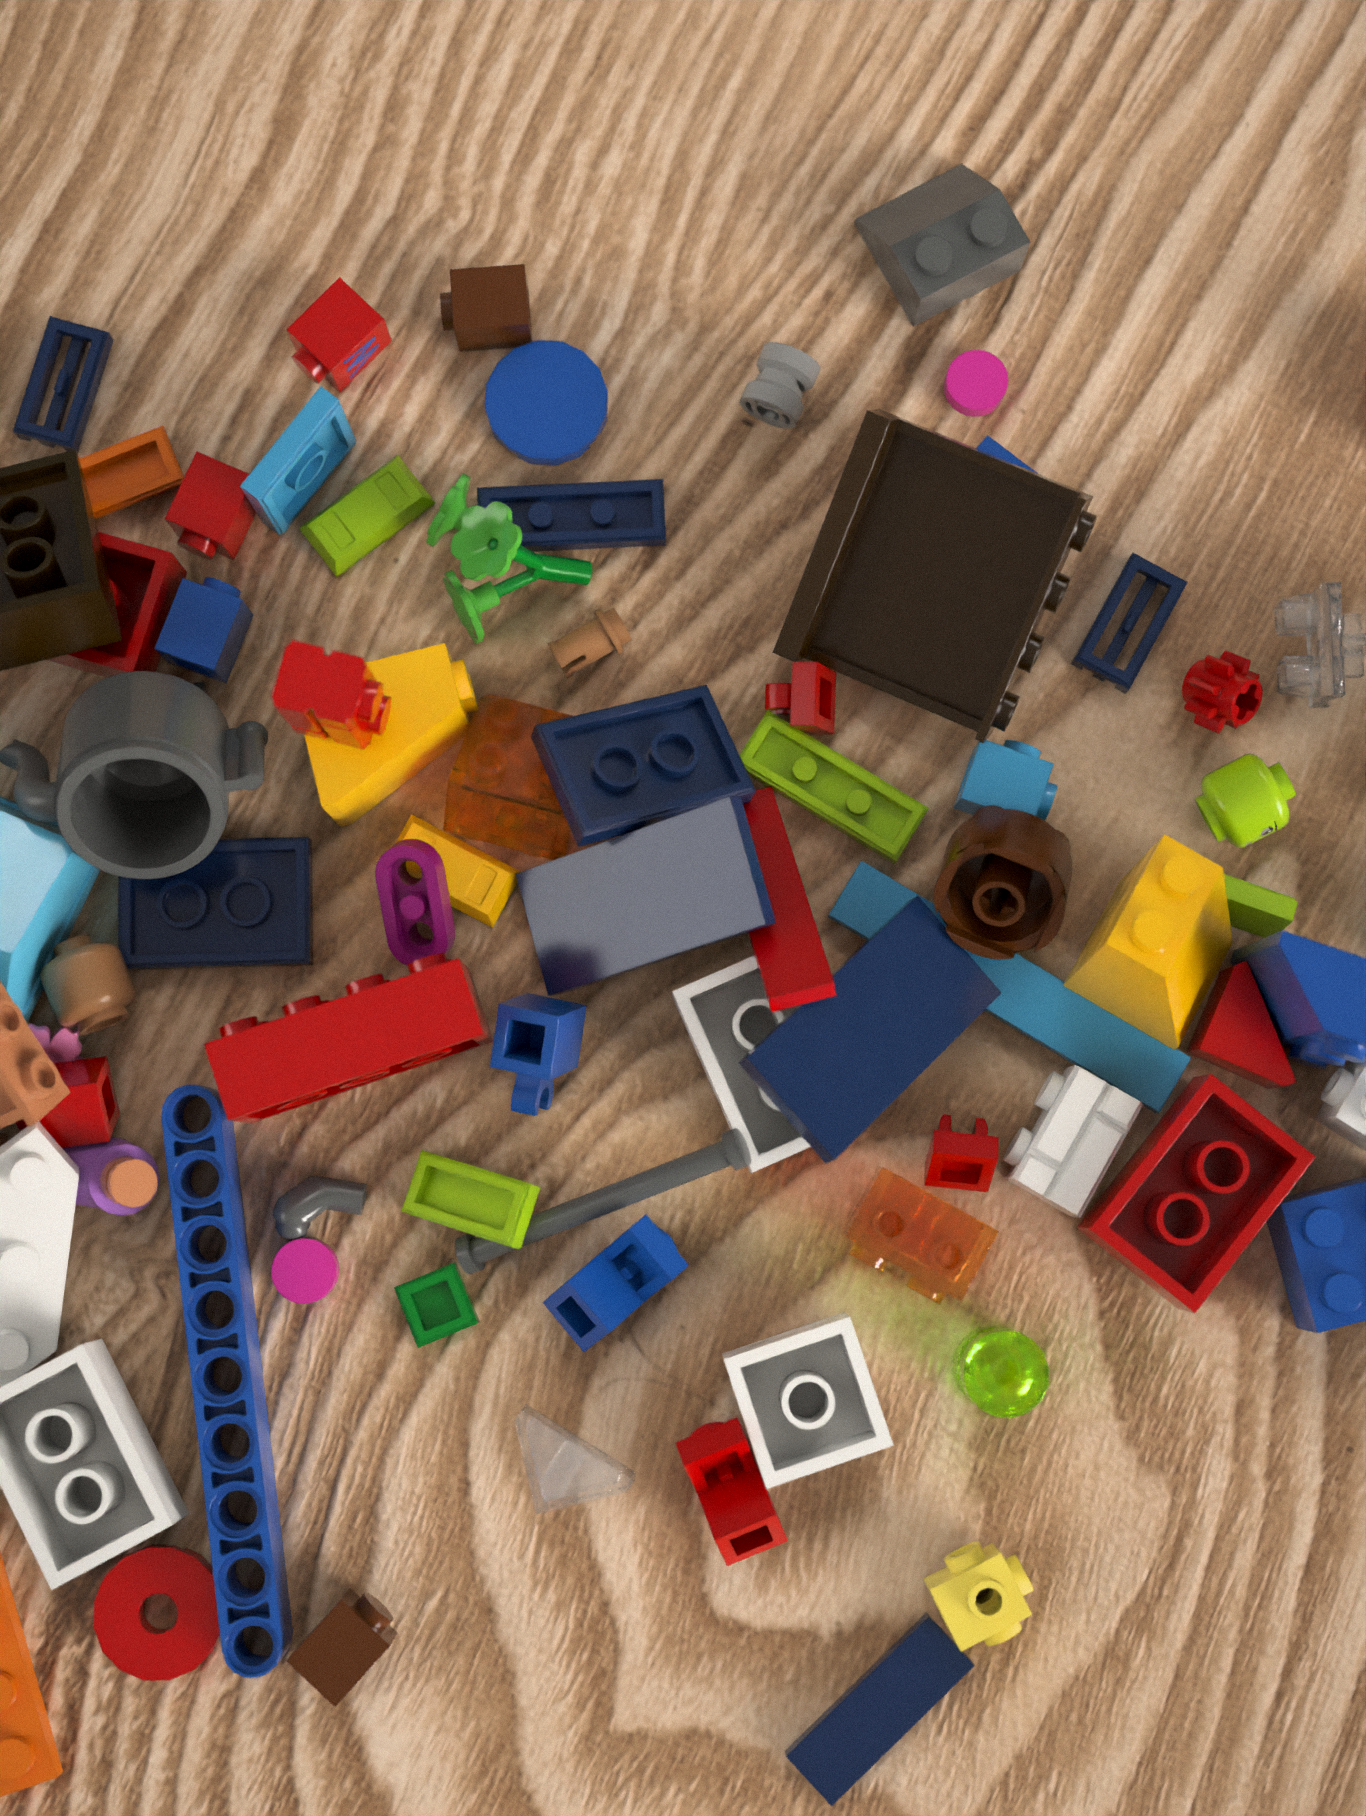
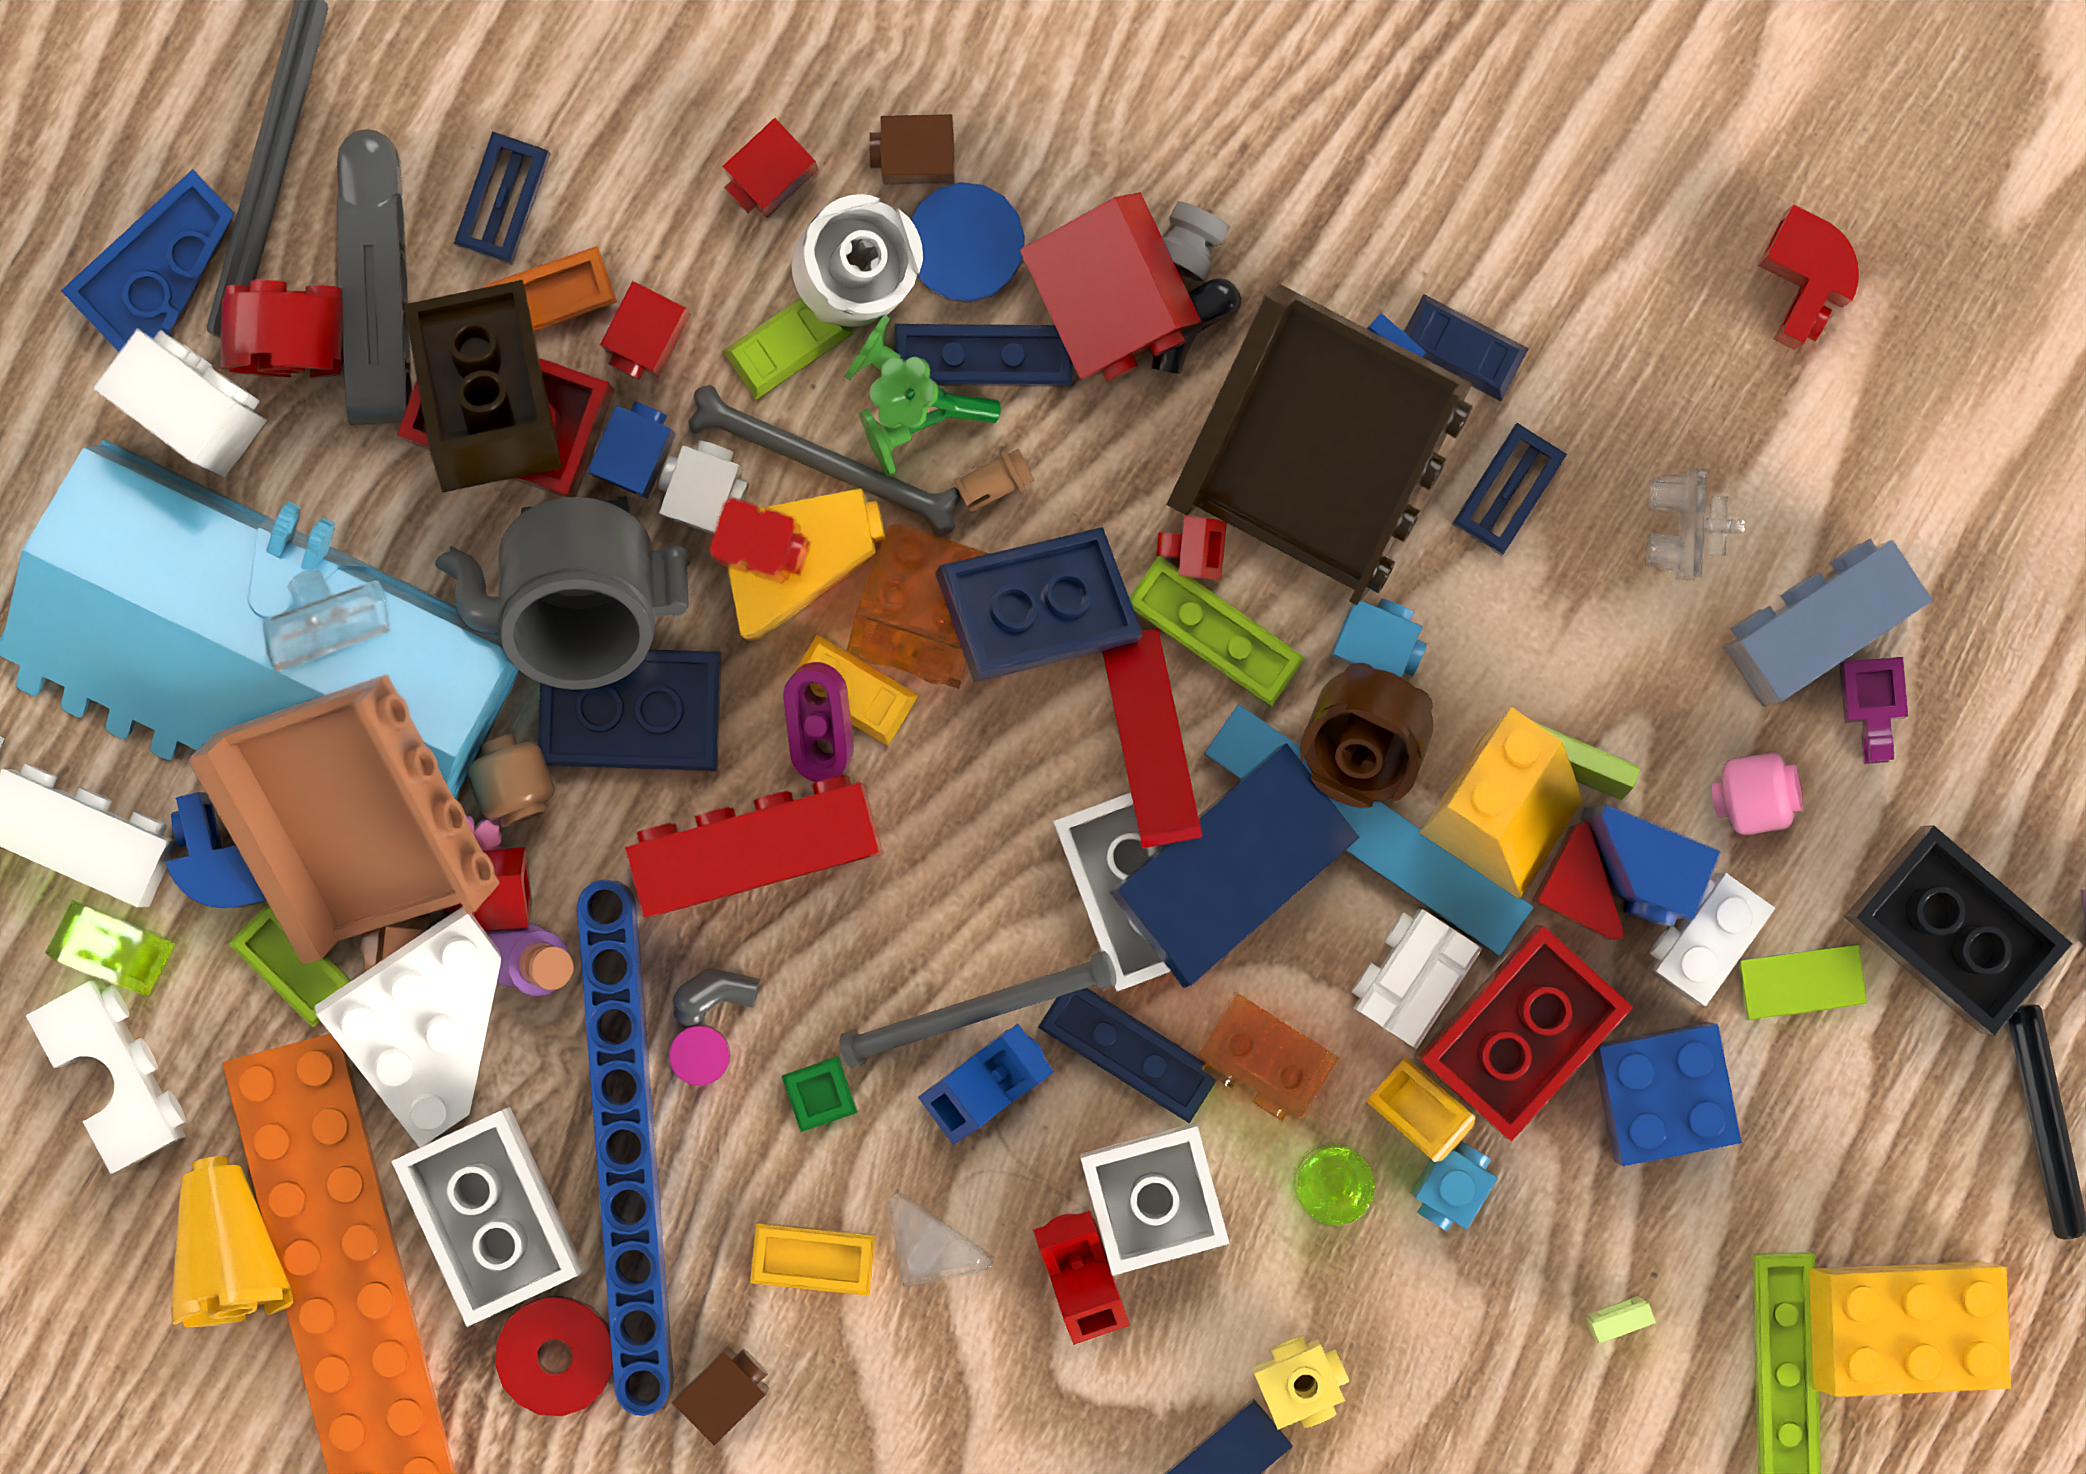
camera: 10 degrees right, 5 degrees up
(261, 654) = (699, 485): none -> white brick
(293, 591) = (716, 414): none -> dark grey piece
(299, 461) = (730, 297): dark azure tile -> none
(437, 1486) = (812, 1258): none -> yellow tile
(460, 421) = (869, 231): none -> white brick
(471, 1199) = (856, 999): lime tile -> none
(538, 1042) = (927, 859): blue brick -> none
(646, 896) = (1032, 731): tile -> none
(700, 430) = (1111, 287): none -> red brick
(768, 1238) = (1129, 1051): none -> dark blue tile
(783, 464) = (1213, 302): none -> black arm
(944, 241) = (1355, 103): dark grey slope -> none
(961, 1158) = (1312, 988): red tile -> none
(975, 383) = (1379, 246): dark pink tile -> none
(1091, 1284) = (1421, 1110): none -> yellow tile
(1107, 485) = (1465, 347): none -> dark blue tile
(1131, 1365) = (1454, 1187): none -> dark azure brick
(1222, 691) = (1589, 564): red gear -> none
(1245, 800) = (1603, 668): lime head -> none
(1322, 1502) = (1620, 1319): none -> yellowish green tile

